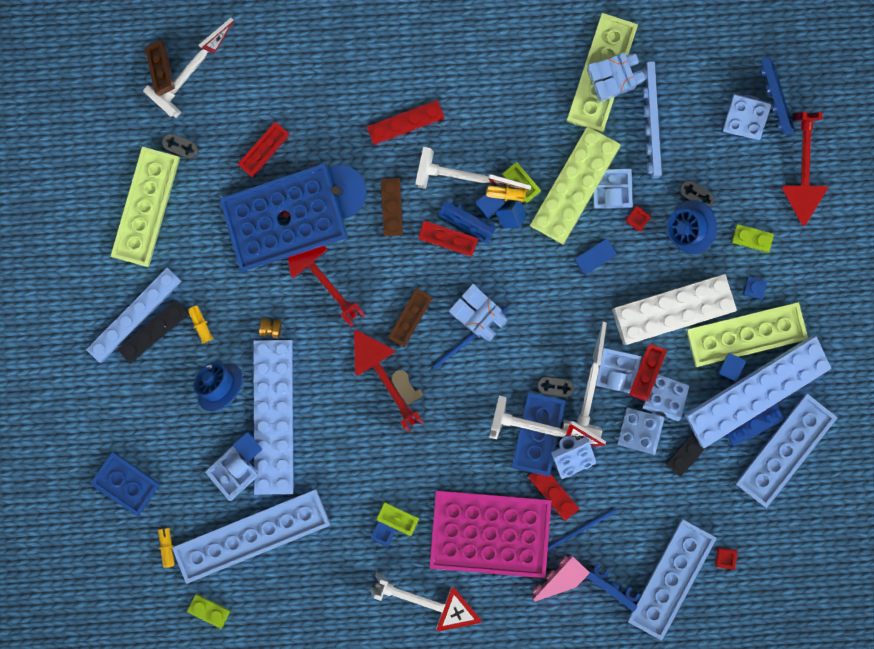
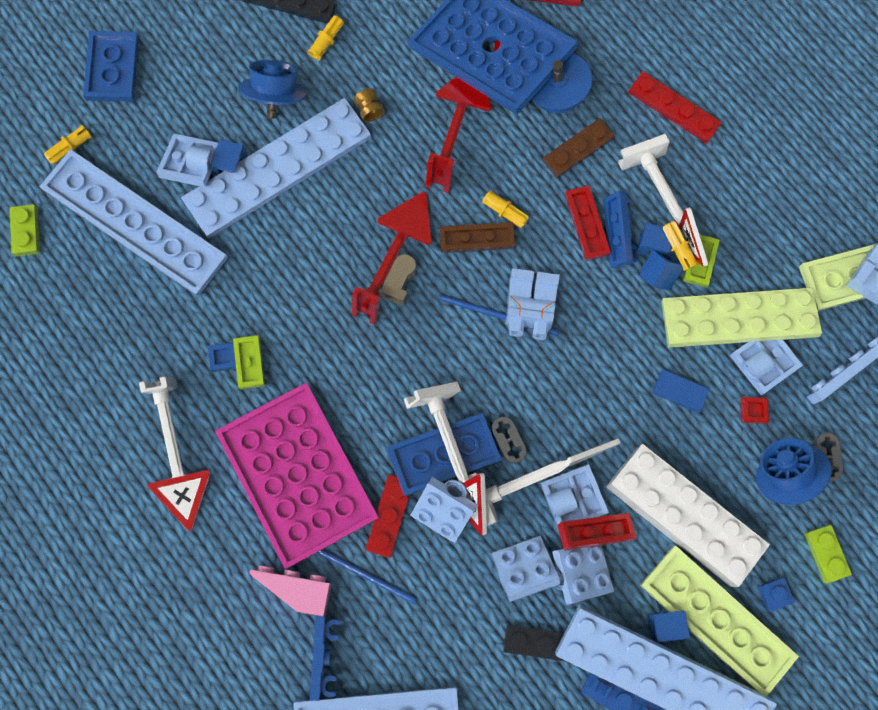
camera: 55 degrees right, 10 degrees down
(403, 285) = (505, 209): none -> yellow axle

